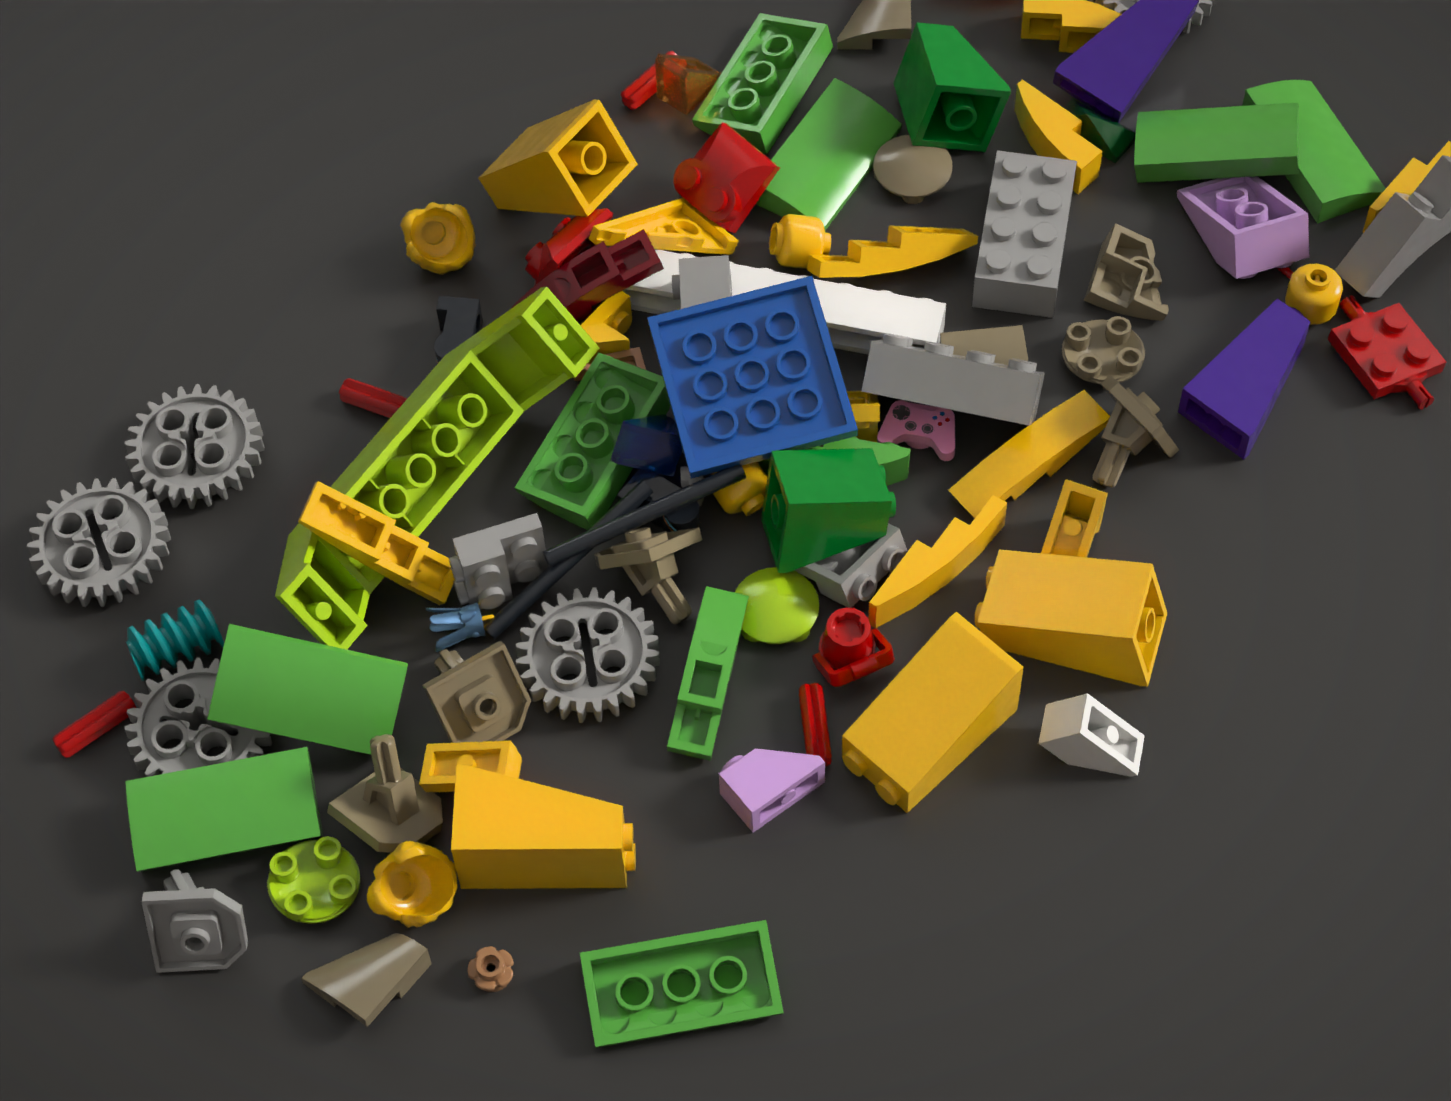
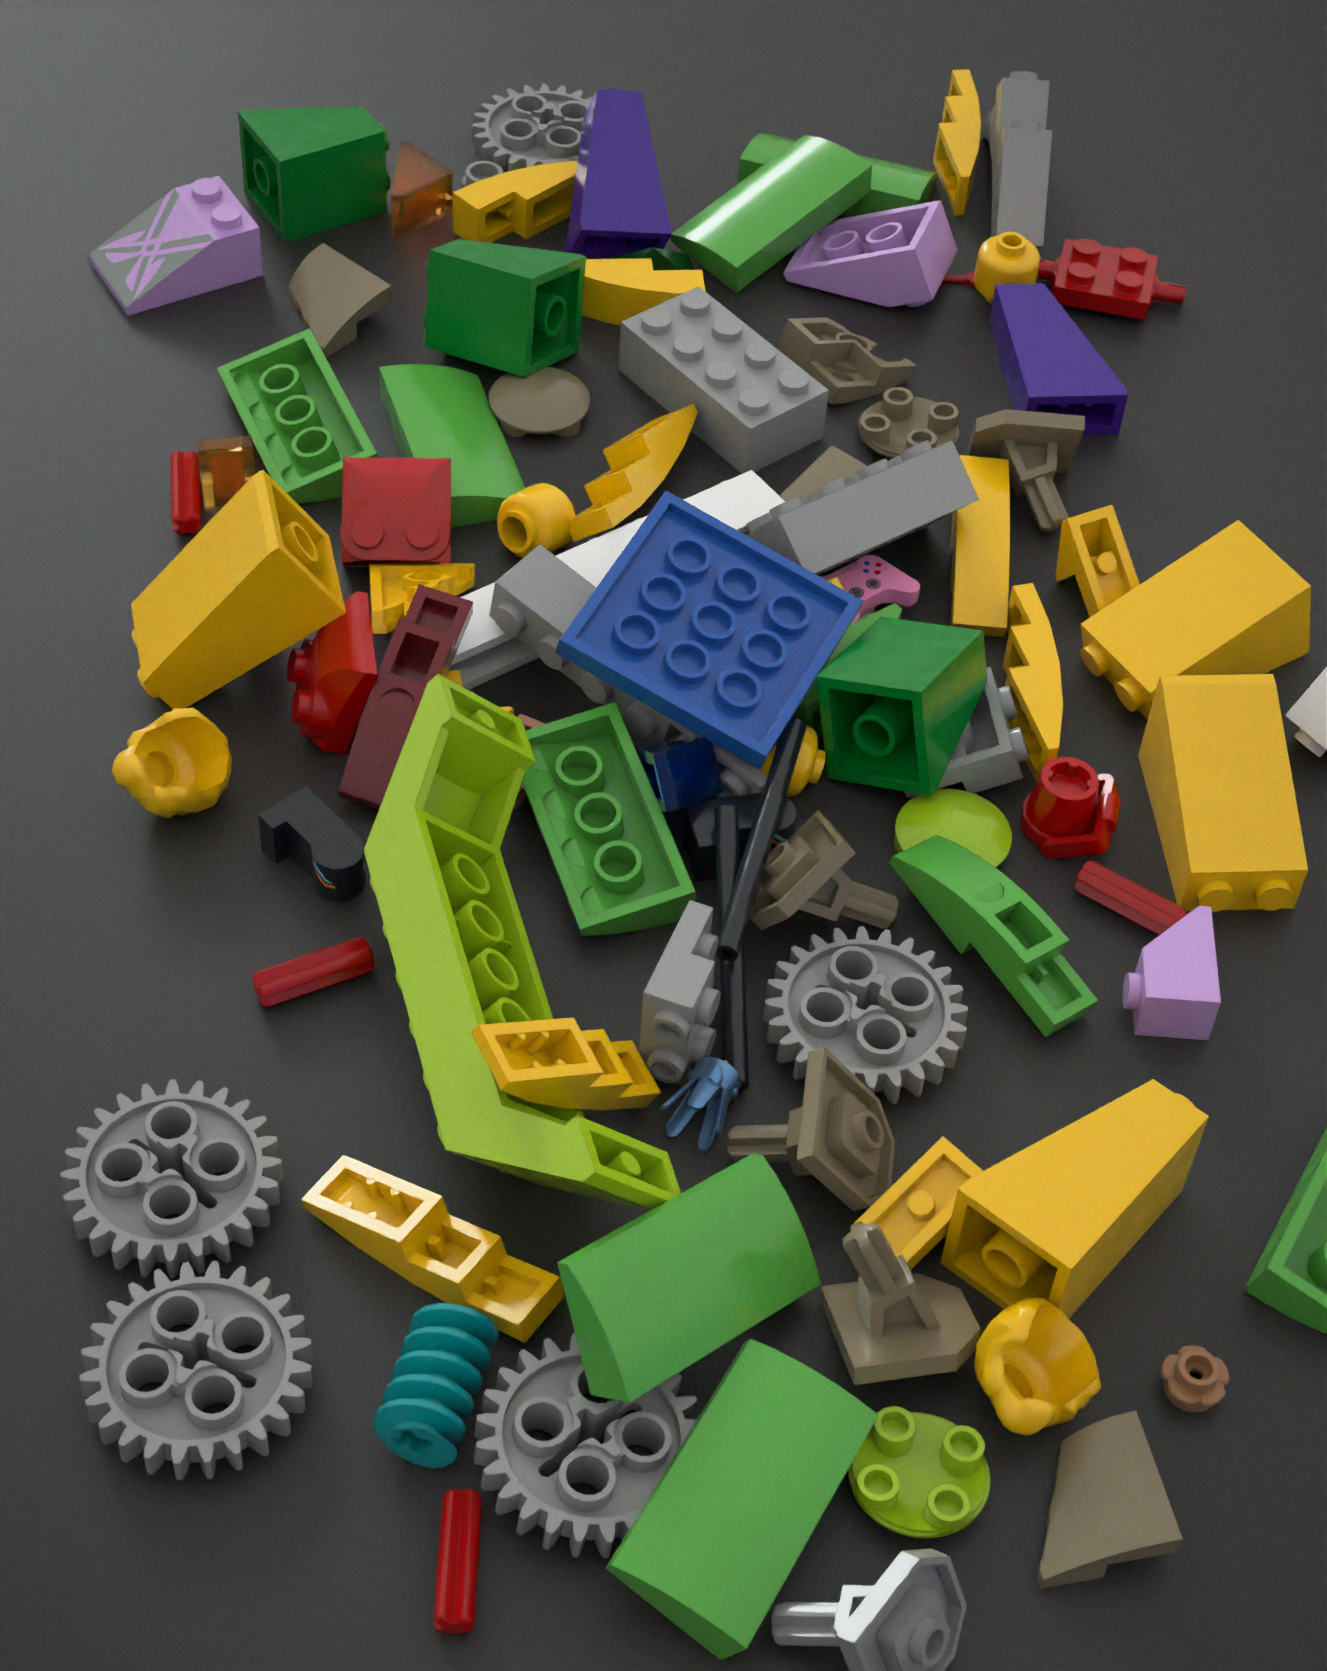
camera: 55 degrees left, 10 degrees down
(256, 567) = (437, 1252): none -> yellow slope

